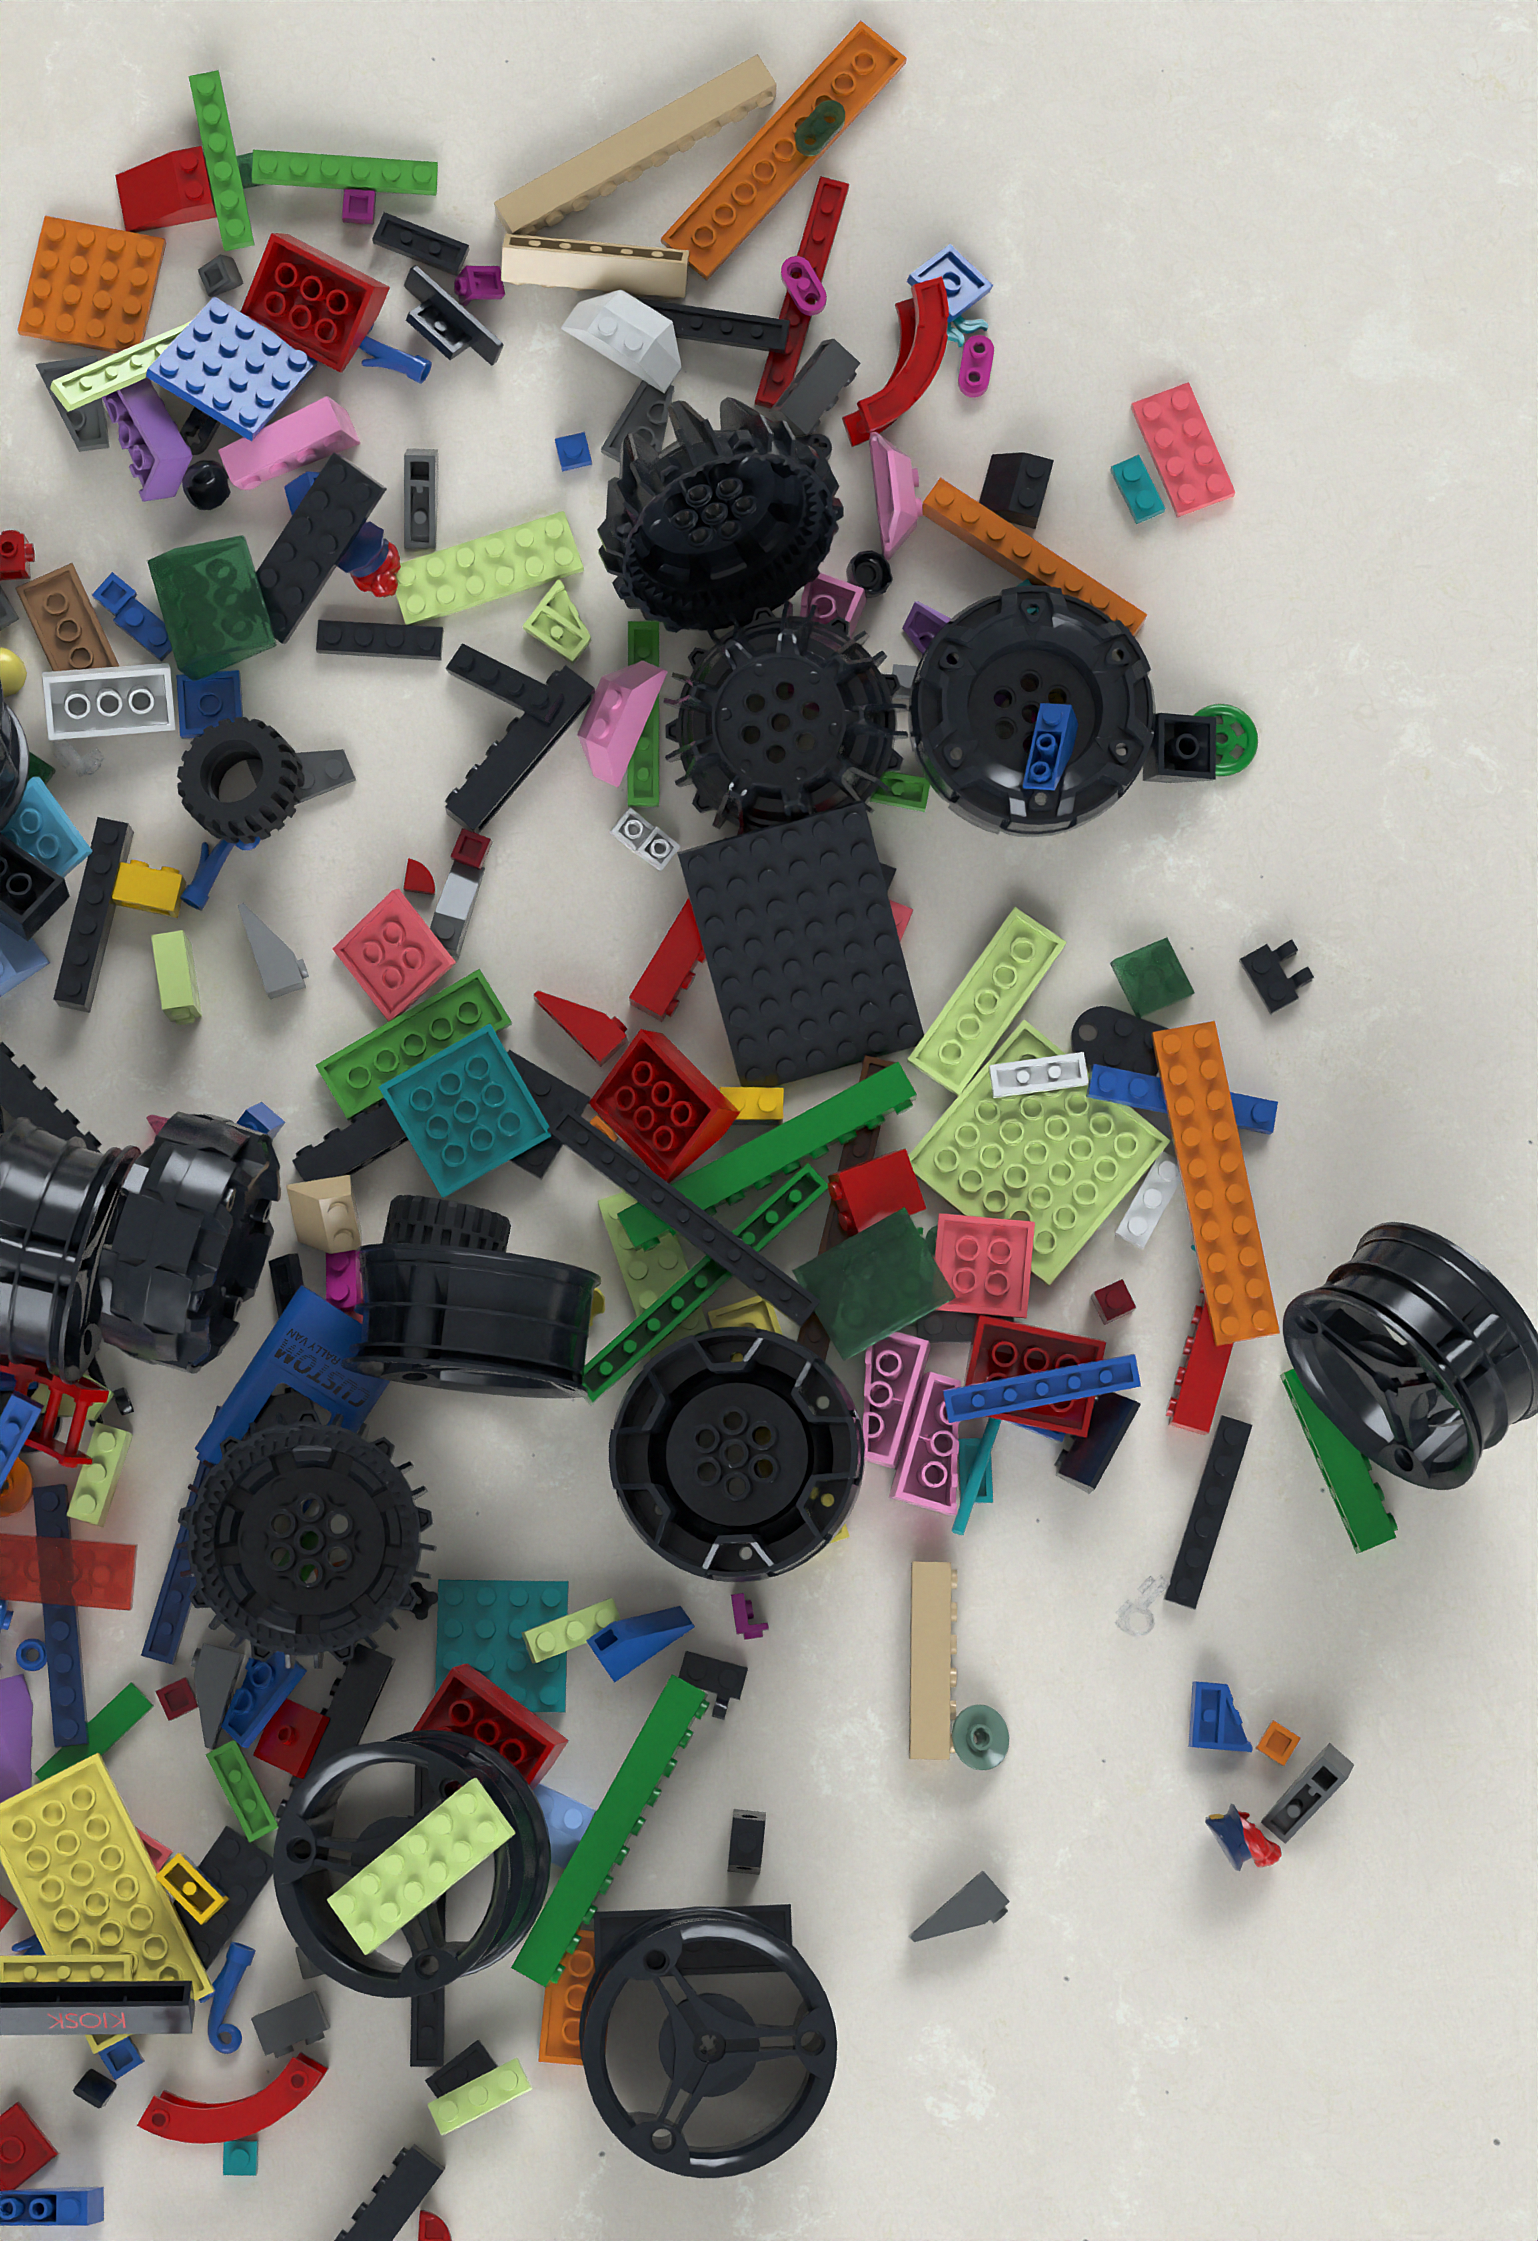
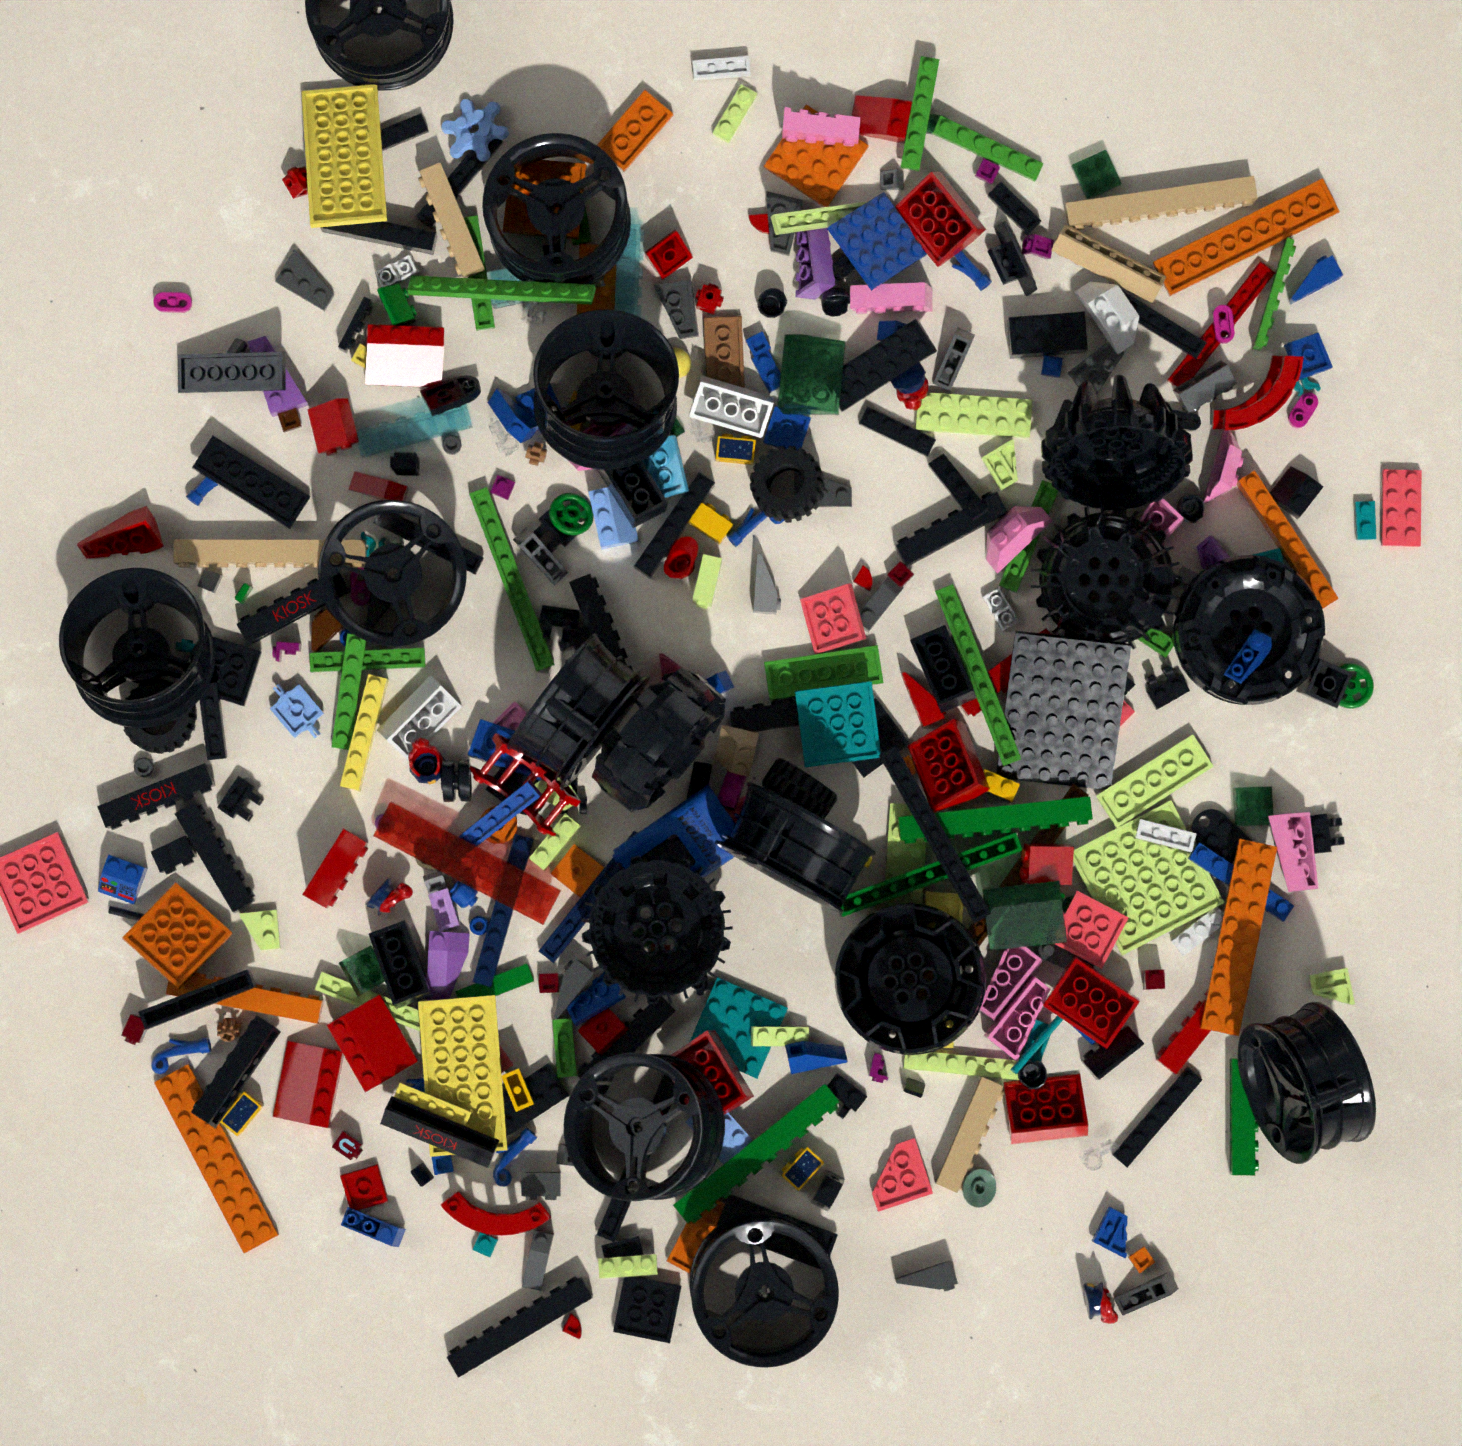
camera: 25 degrees right, 5 degrees up
(45, 415) = (760, 222): none -> red tile
(76, 236) = (820, 127): none -> bright pink wedge
(110, 524) = (771, 303): none -> black hair
(124, 959) = (681, 558): none -> red piece
(142, 764) = (735, 449): none -> brick
(152, 1504) = (577, 870): none -> orange plate
(333, 2146) = (537, 1260): none -> dark grey slope
(421, 1866) = (650, 1132): yellowish green plate -> none
(523, 147) = (1096, 175): none -> clear green plate
(538, 2151) = (647, 1308): none -> black plate
(547, 406) = (1047, 335): none -> black brick
(593, 961) = (943, 669): none -> black brick
(651, 949) = (978, 675): none -> bright green plate
(691, 1824) = (801, 1168): none -> dark blue brick
(815, 1623) = (914, 1087): none -> black slope
(818, 129) = (1271, 235): clear green plate -> none
(854, 1772) = (902, 1177): none -> coral plate
(860, 203) = (1272, 301): none -> bright green plate
(872, 1557) = (961, 1065): none -> yellowish green plate
(920, 158) = (1321, 275): none -> blue slope
(950, 860) = (1169, 690): none -> black plate
(989, 1524) = (1033, 1074): none -> black hair
(1032, 1571) = (1048, 1112): none -> red slope
(1041, 1388) = (1093, 1012): blue plate -> none
(1244, 1015) = (1295, 850): none -> bright pink wedge
(1389, 1198) = (1333, 985): none -> yellowish green wing

